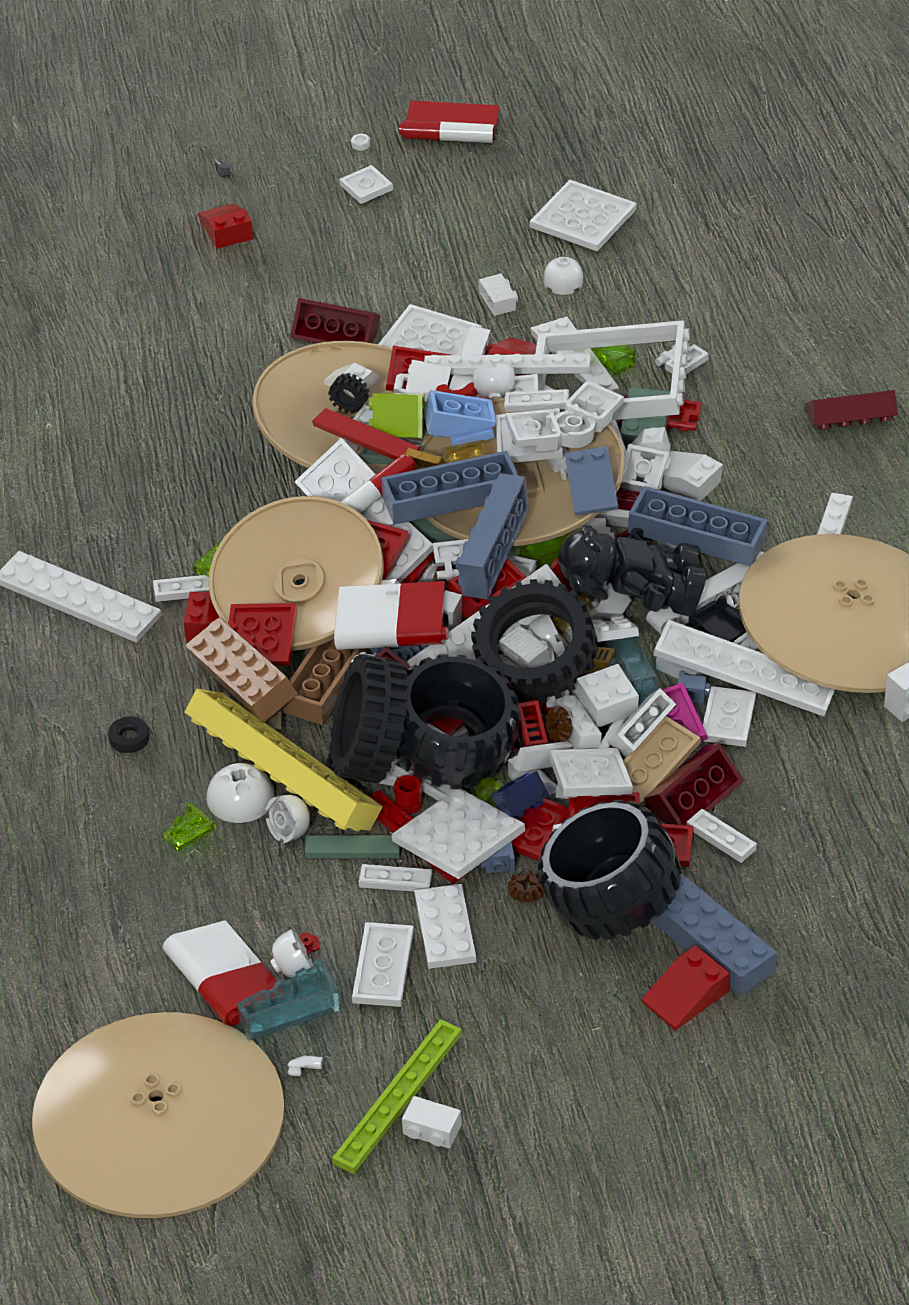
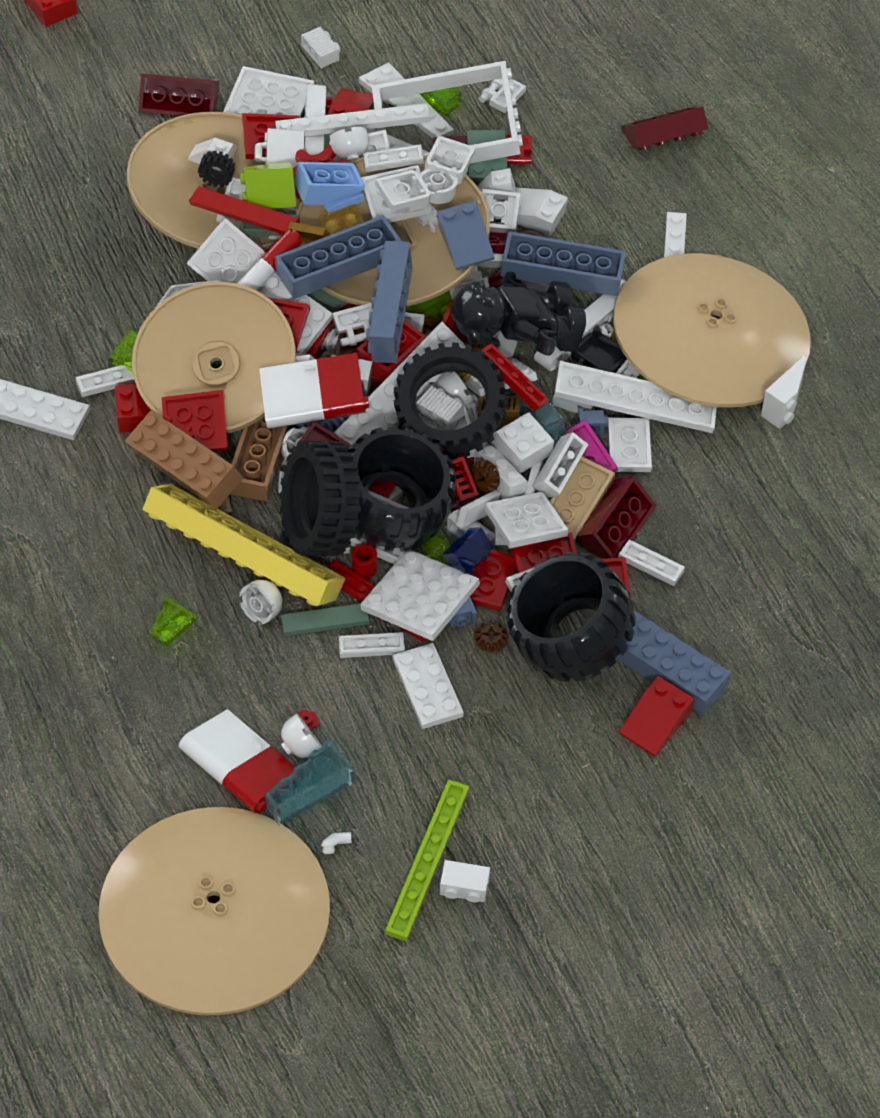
camera: 15 degrees left, 10 degrees up
(125, 724) = (91, 546): black tyre -> none
(239, 793) = (209, 581): white piece -> none
(383, 964) = (382, 732): white plate -> none
(563, 275) = (375, 21): white cylinder -> none
(611, 629) = (516, 379): none -> red plate

